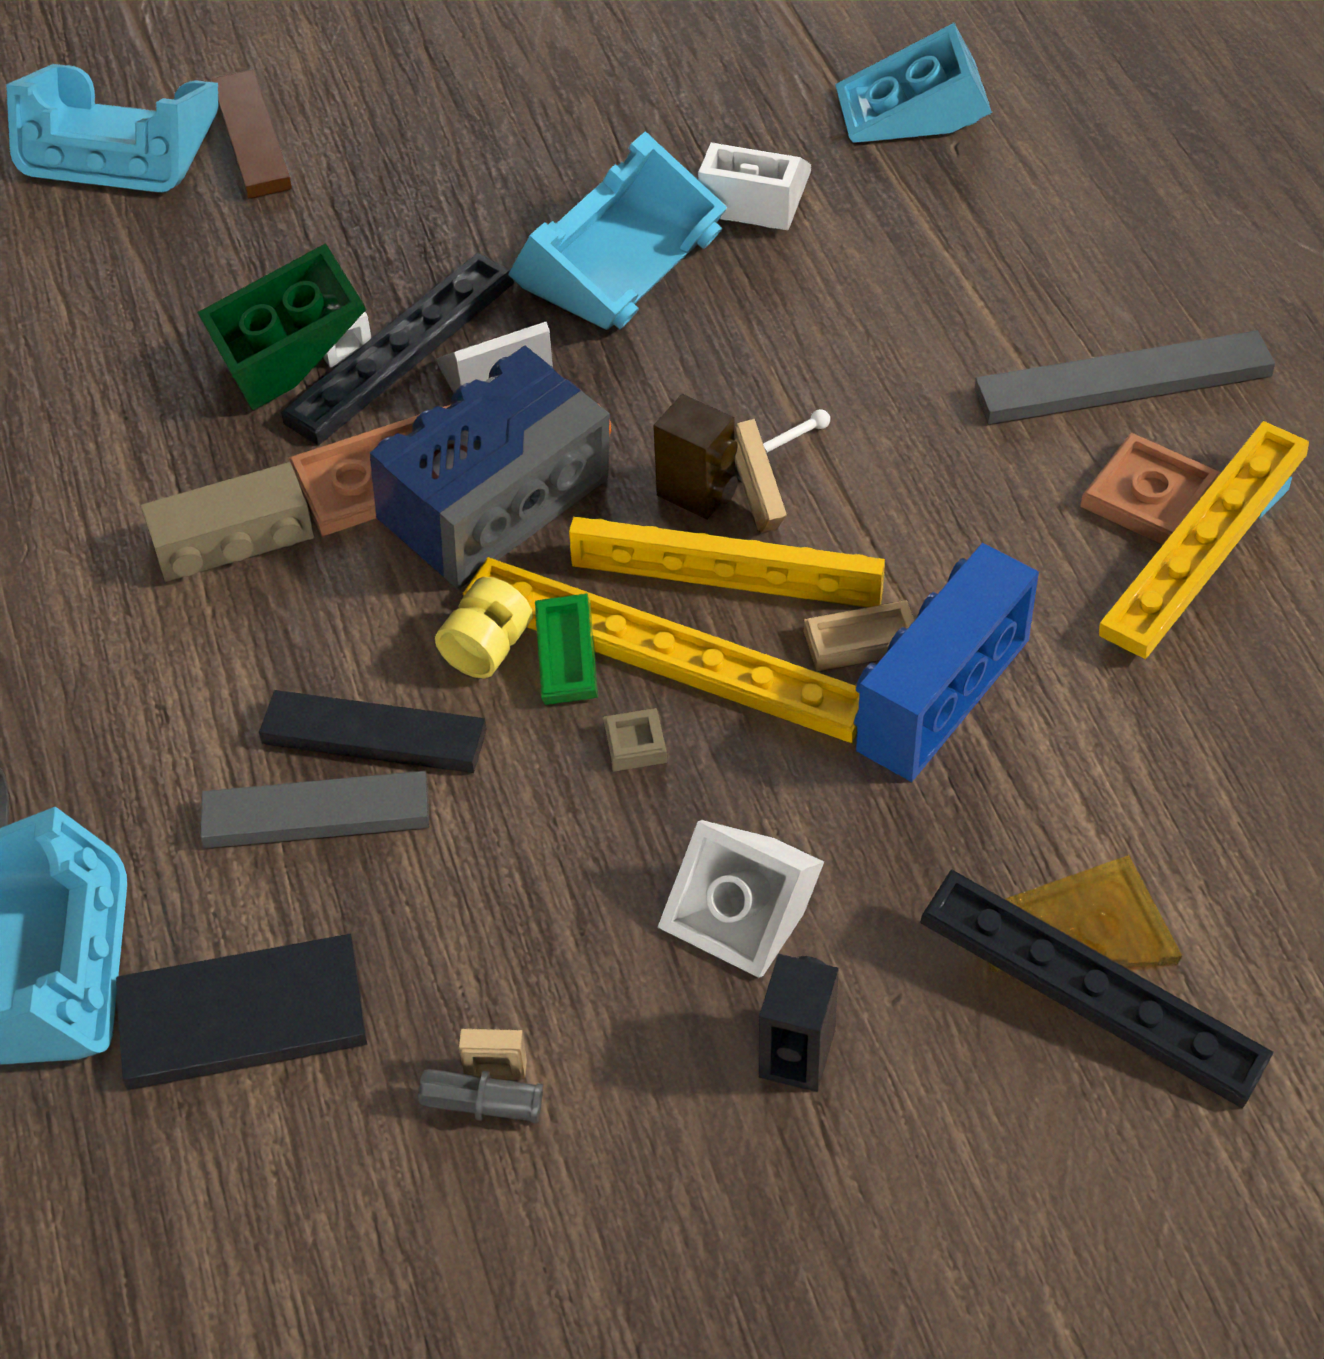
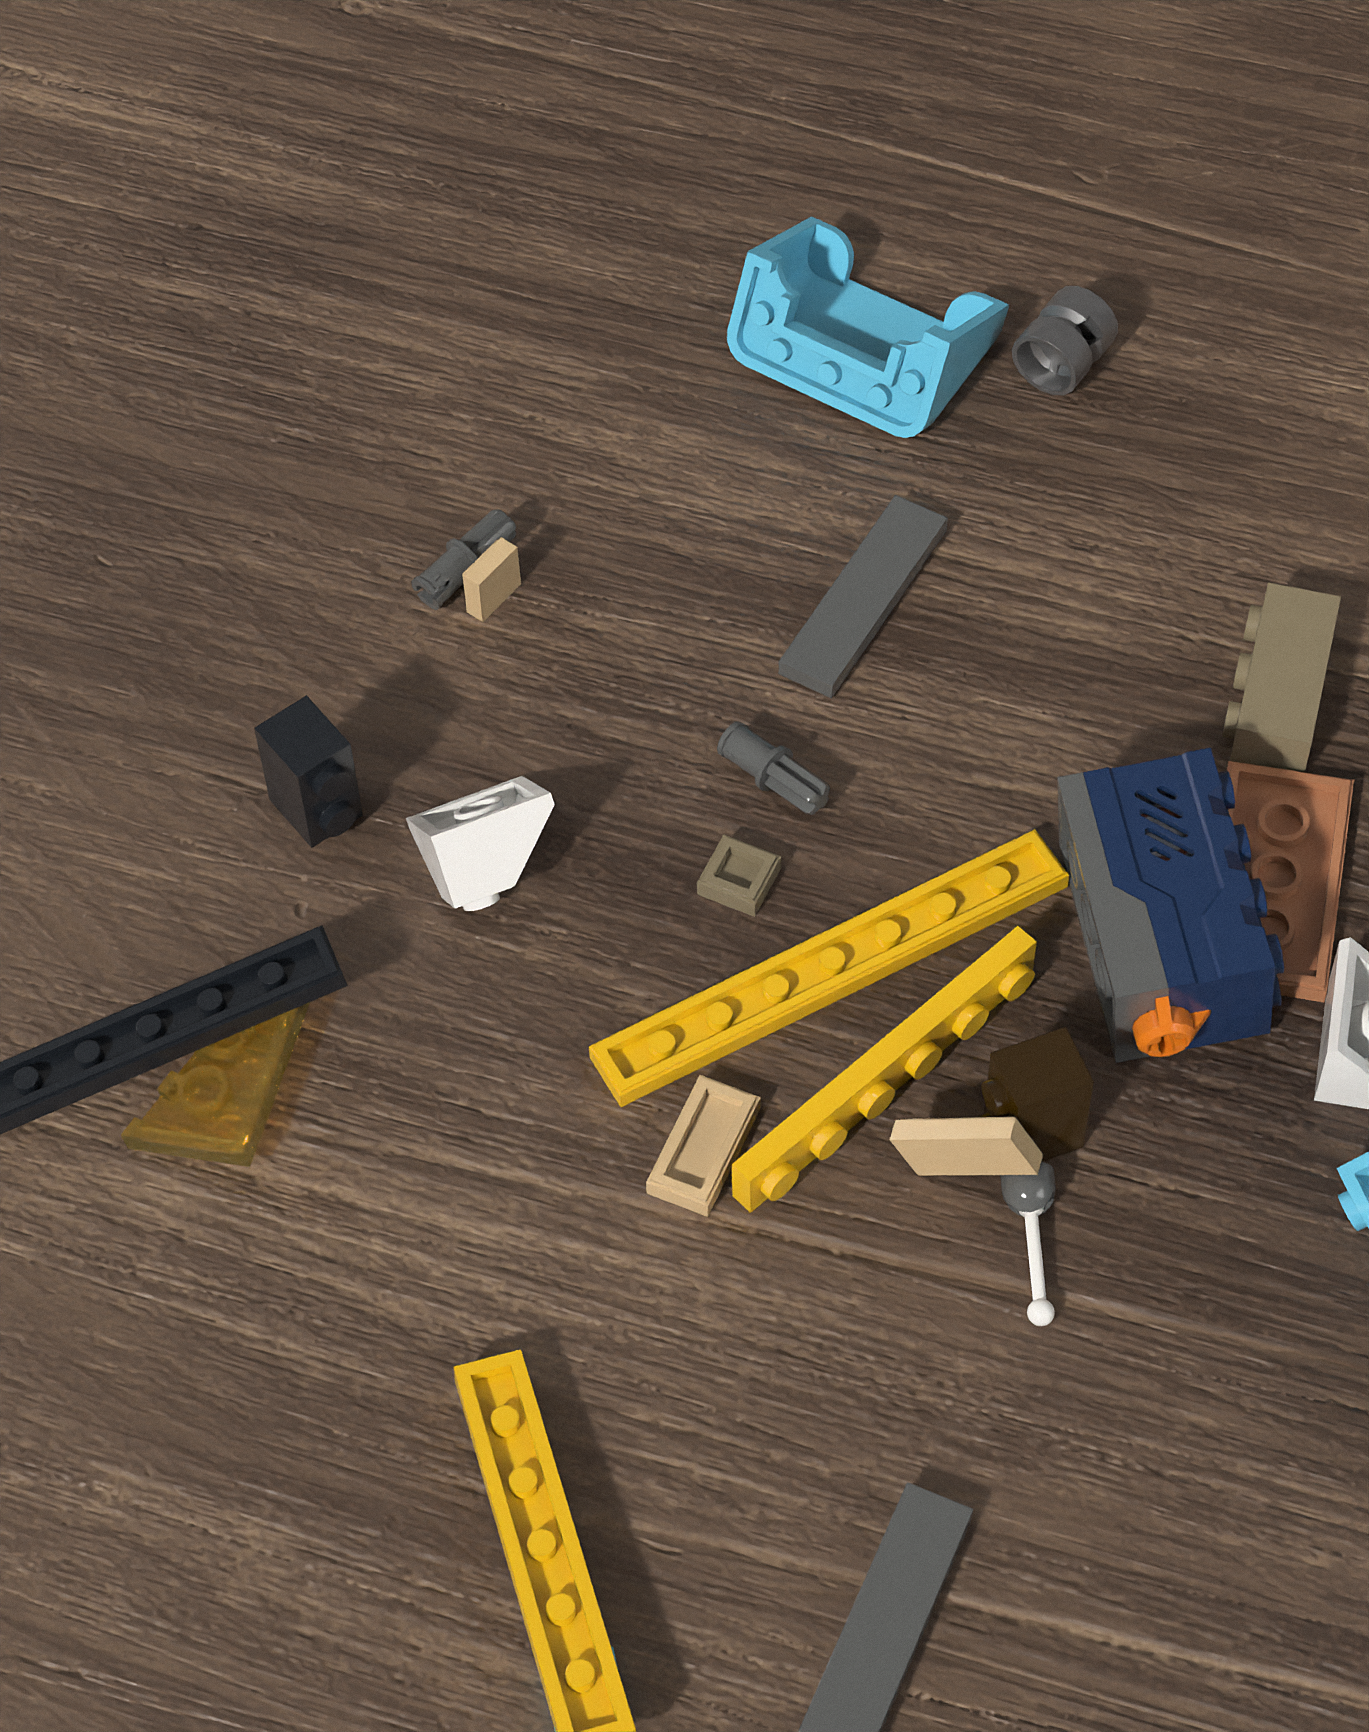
camera: 125 degrees right, 5 degrees up
(239, 1011) = (693, 454): black tile -> none
(373, 731) = (919, 680): black tile -> none
(484, 627) = (960, 805): light yellow wheel -> none
(529, 764) = (773, 768): none -> dark grey axle
(566, 649) = (886, 868): green tile -> none
(944, 661) = (578, 1145): blue brick -> none
(1148, 488) = (668, 1578): nougat tile -> none

